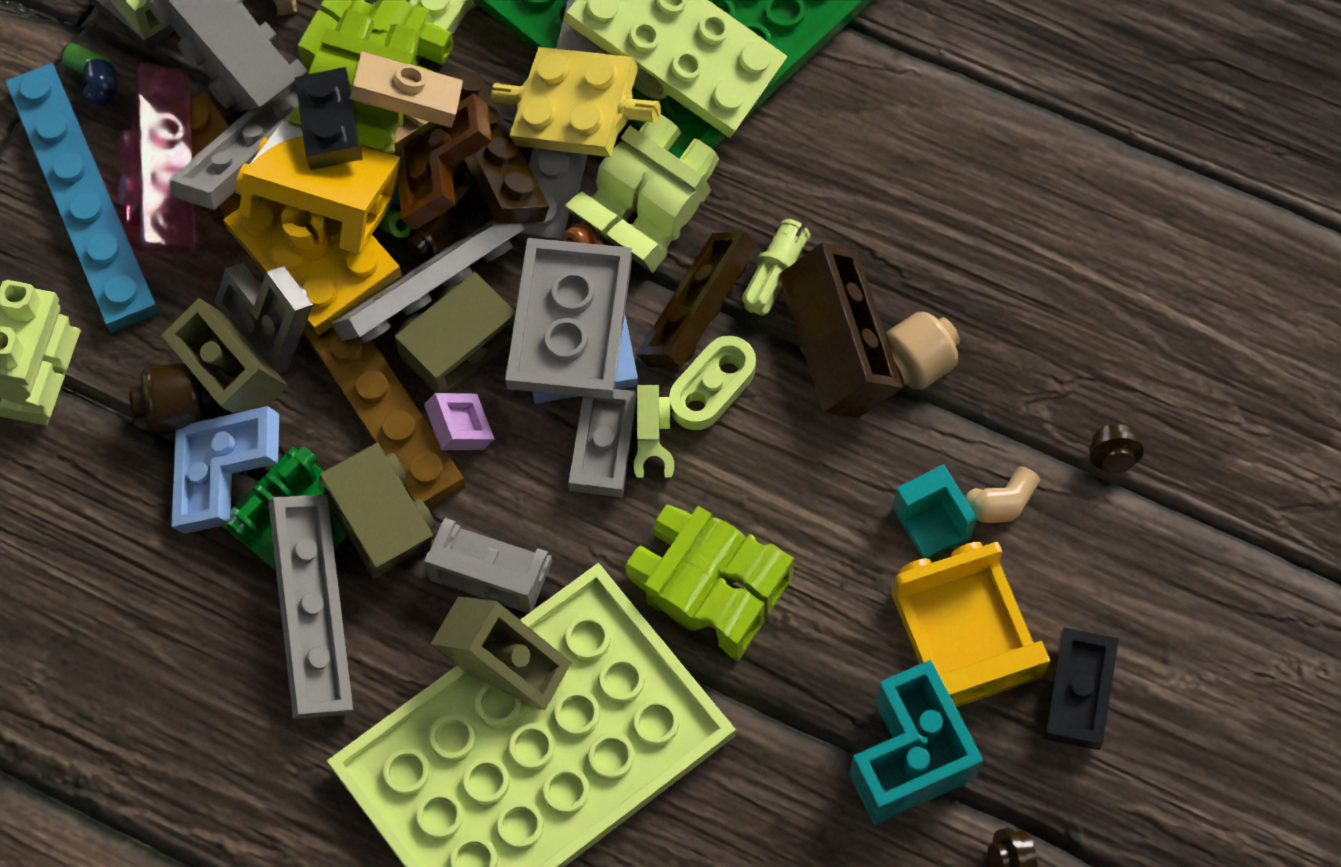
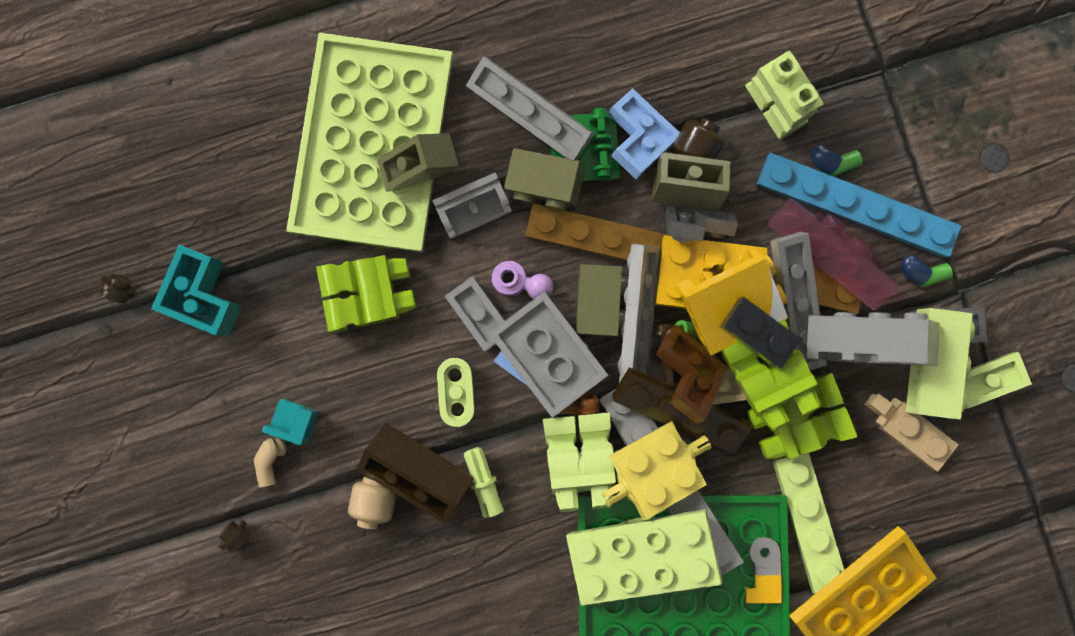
camera: 140 degrees right, 20 degrees up
(54, 255) = (833, 163): none -> dark blue arm
(406, 89) = (738, 386): tan plate -> none
(459, 421) = (553, 259): lavender plate -> none
(506, 411) = (534, 286): none -> lavender plate
(652, 415) = (464, 345): yellowish green plate -> none
(697, 300) = (503, 428): dark brown plate -> none
(968, 623) = (227, 379): yellow panel -> none
(1081, 688) = (151, 397): black plate -> none

